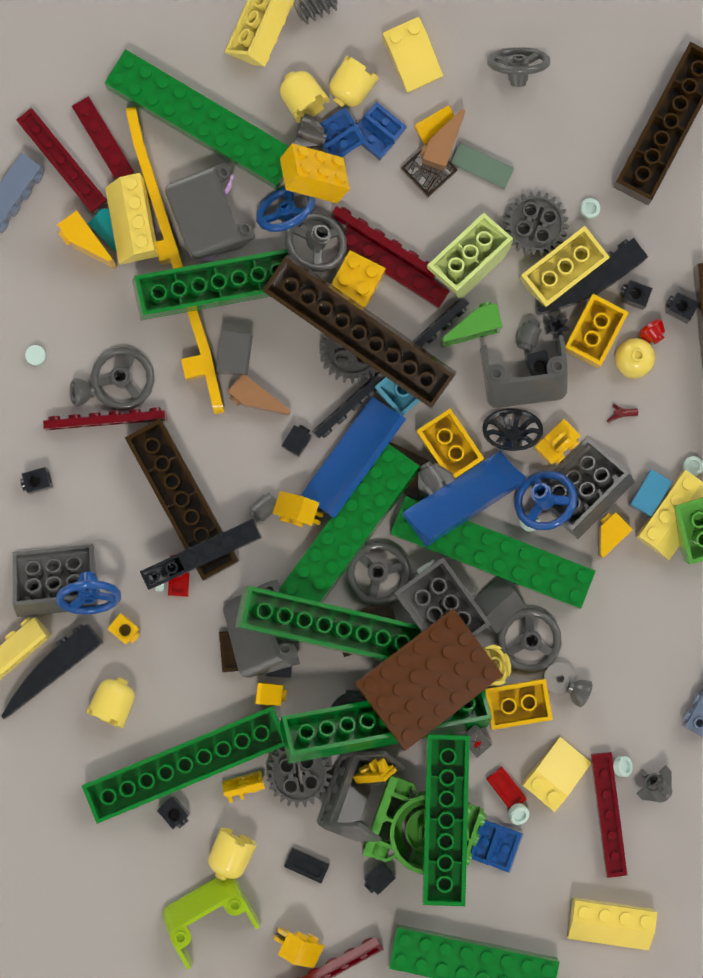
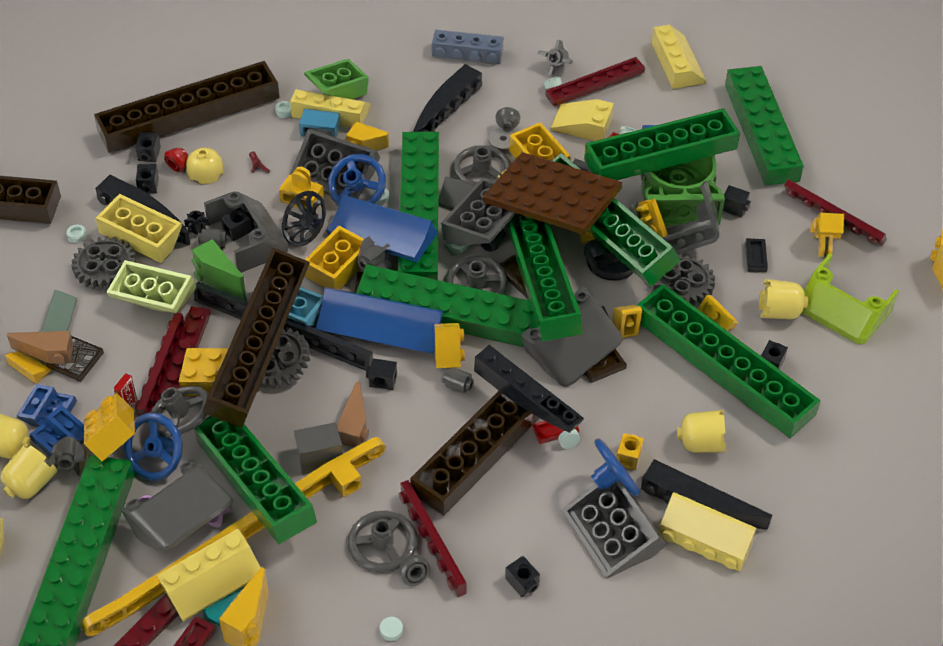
camera: 110 degrees left, 35 degrees down
(356, 200) = (126, 389): none -> red tile
(595, 331) = (188, 190): yellow brick -> none
(637, 641) = (449, 98): none -> black slope

